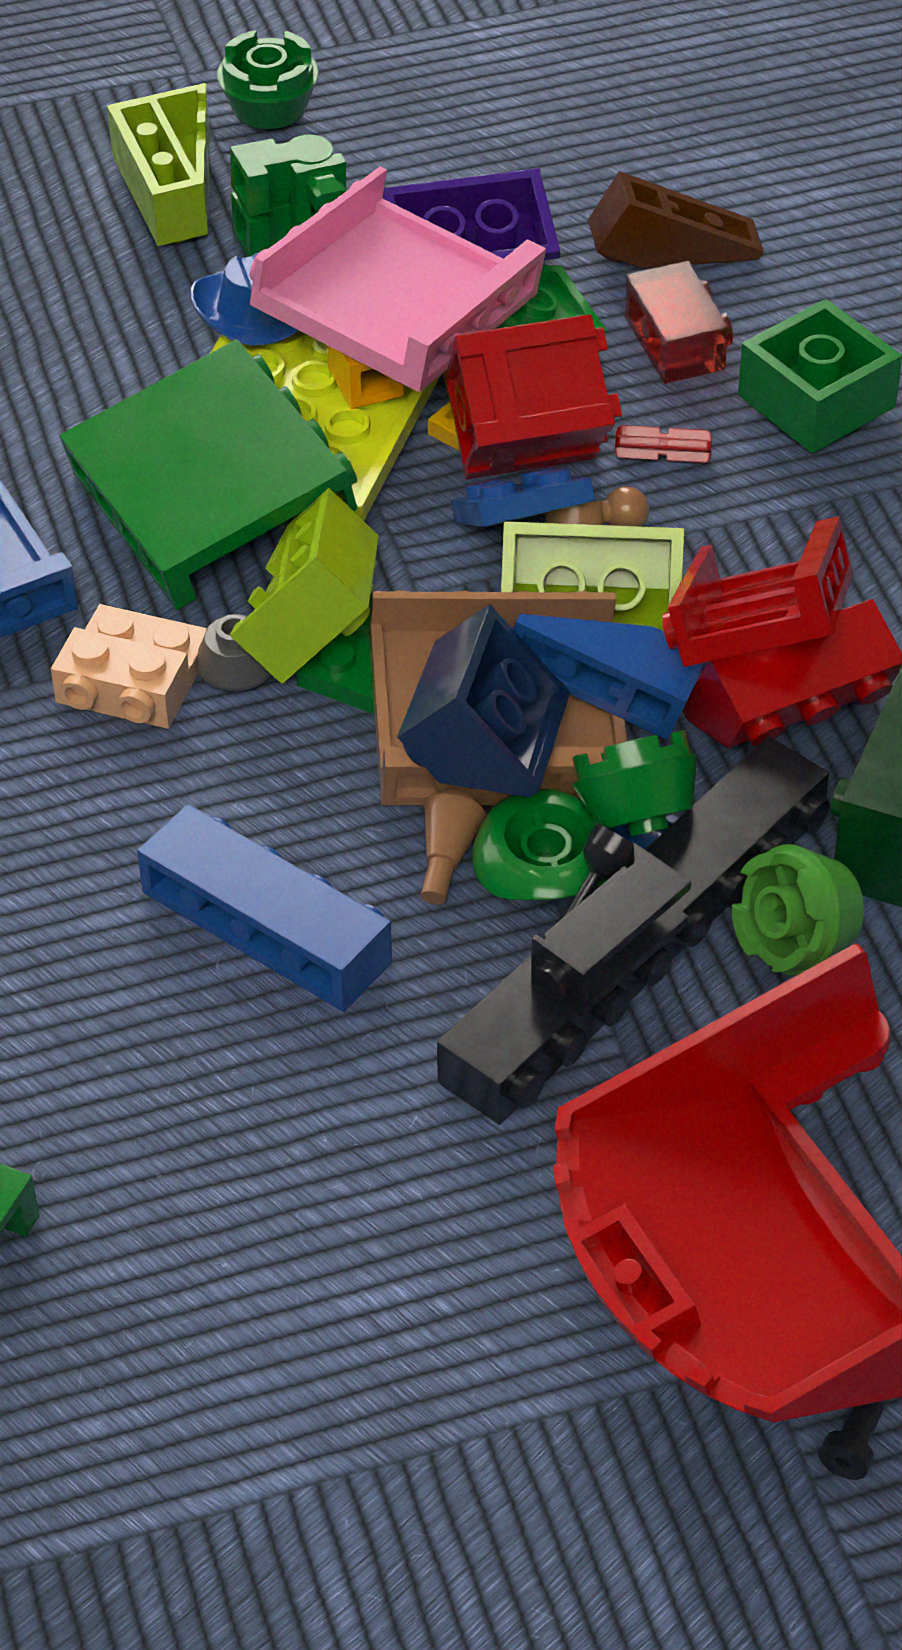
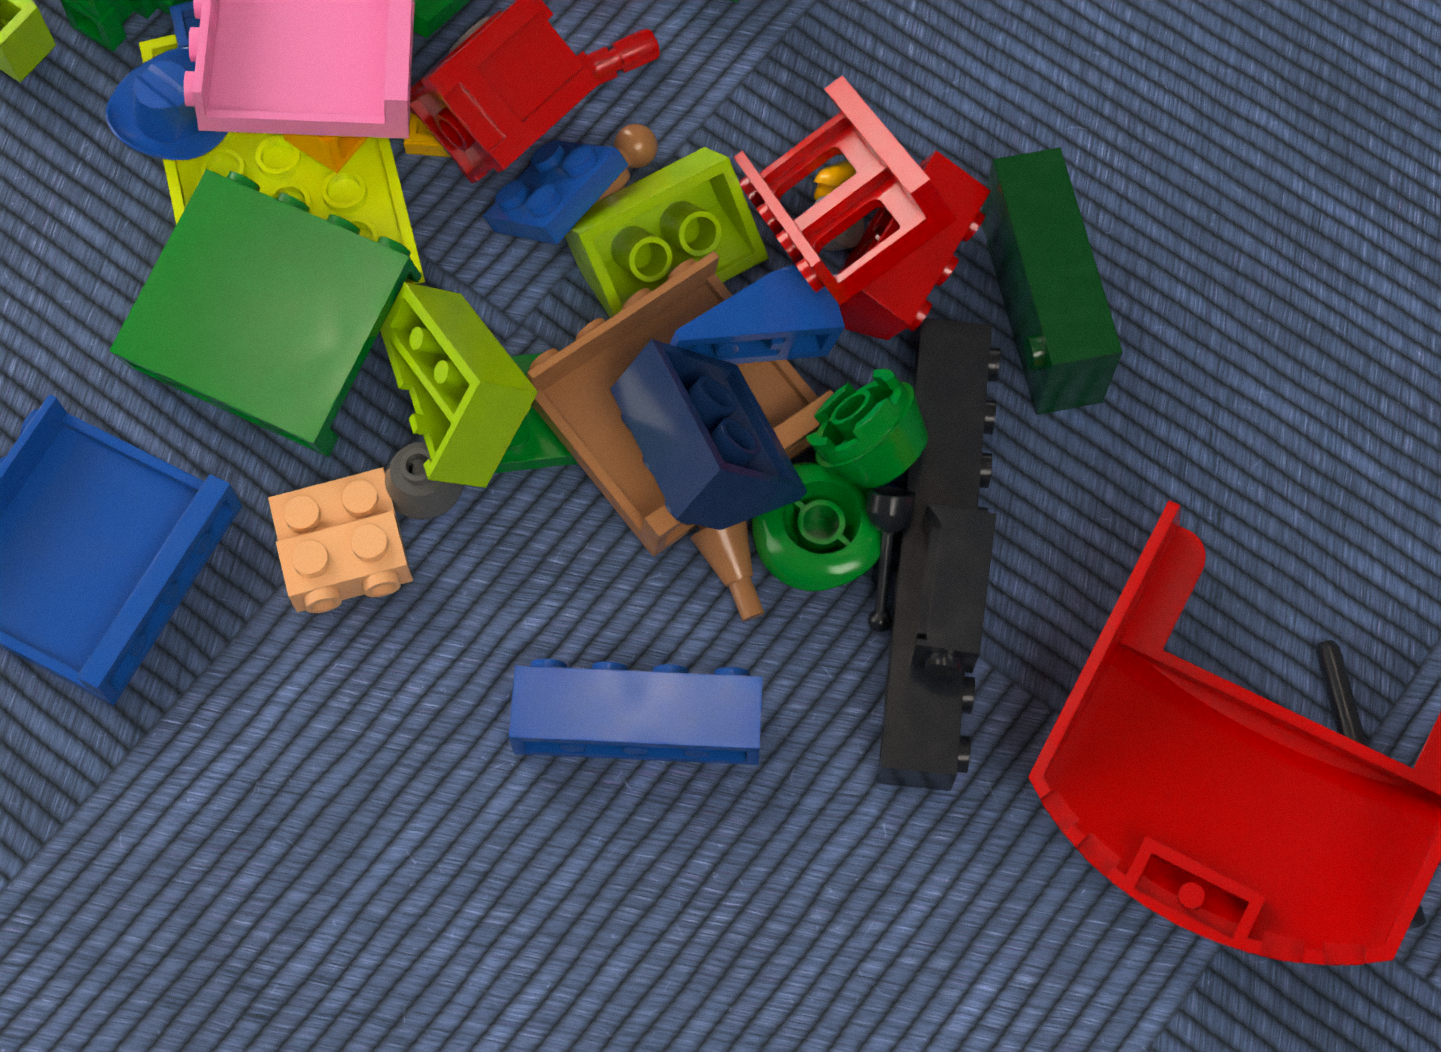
camera: 35 degrees left, 20 degrees up
(797, 908) = (1056, 469): bright green cone -> none

